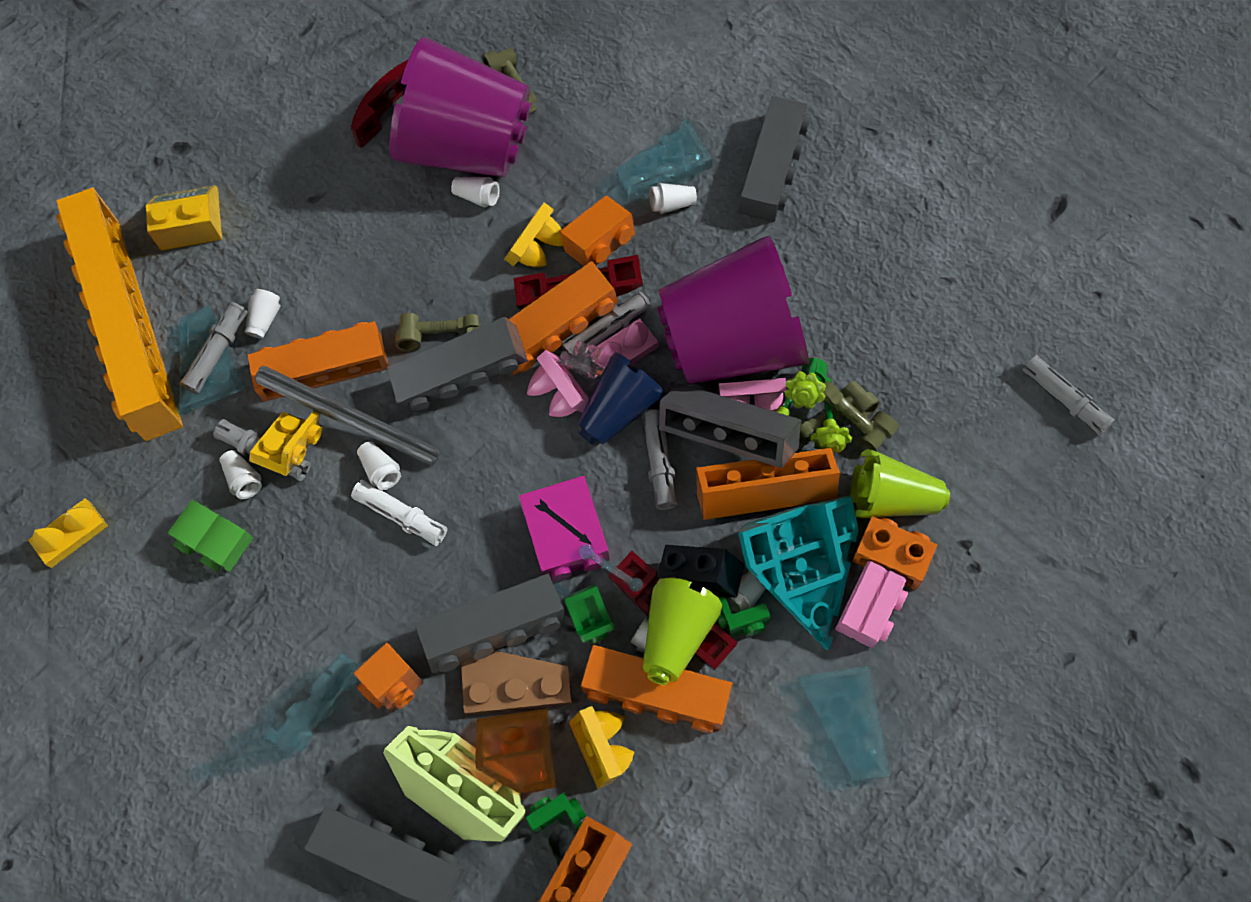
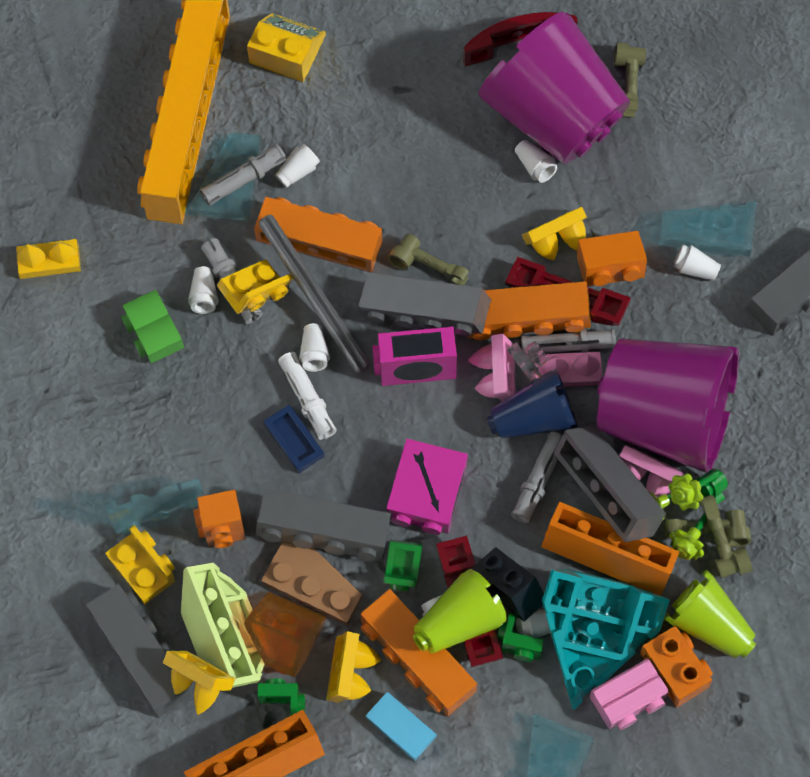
camera: 30 degrees right, 0 degrees up
(337, 772) = (141, 565): none -> yellow bracket
(411, 560) = (294, 439): none -> dark blue tile
(452, 847) = (208, 678): none -> yellow tile
(479, 415) = (415, 356): none -> brick
(586, 552) = (430, 515): clear light blue hinge -> none
(684, 768) = (401, 726): none -> medium azure tile

